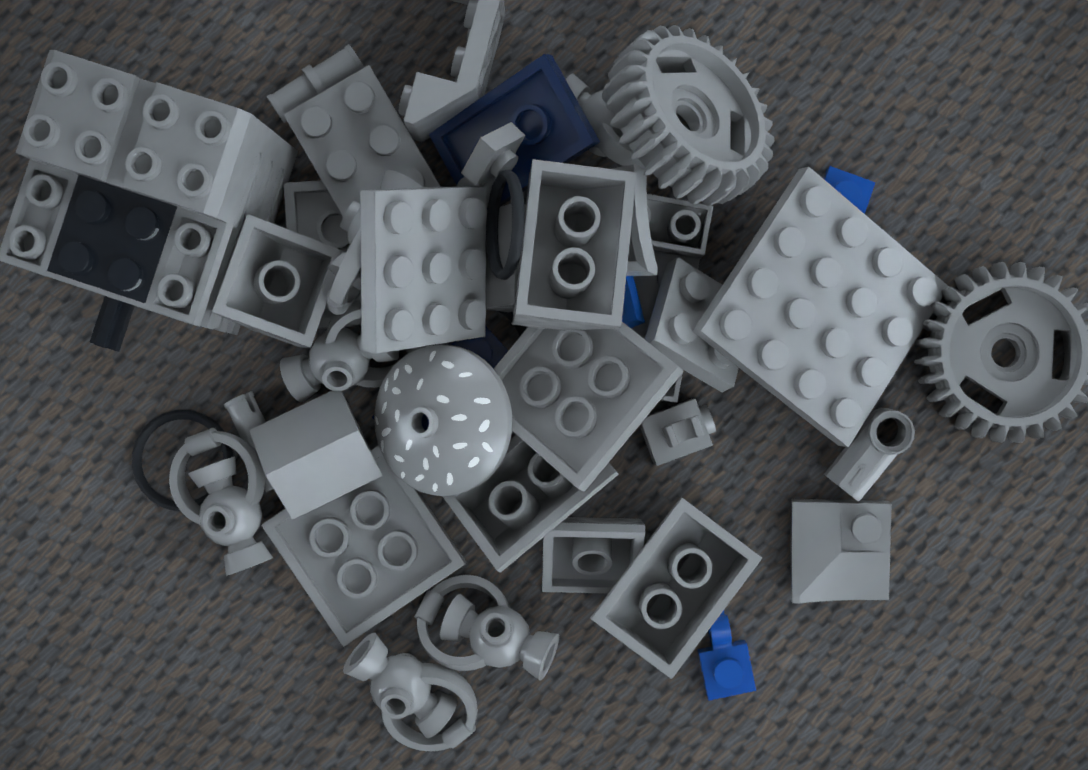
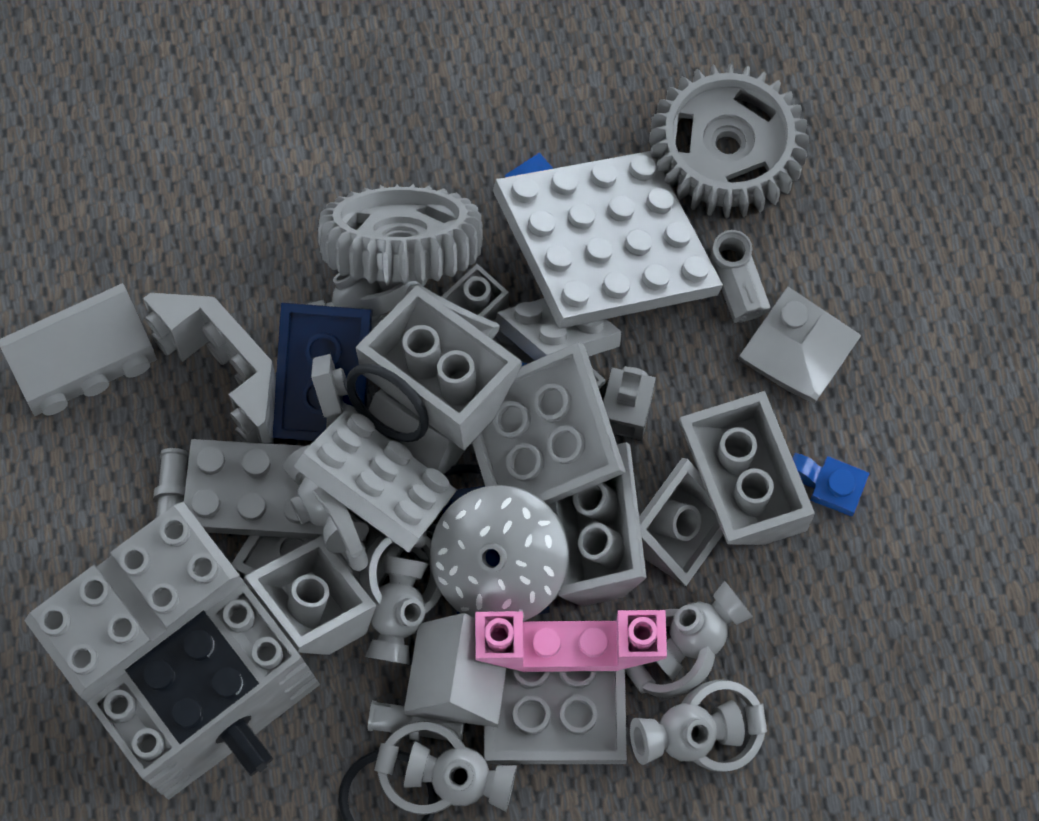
camera: 55 degrees left, 20 degrees down
(408, 535) = (570, 645): none -> bright pink slope

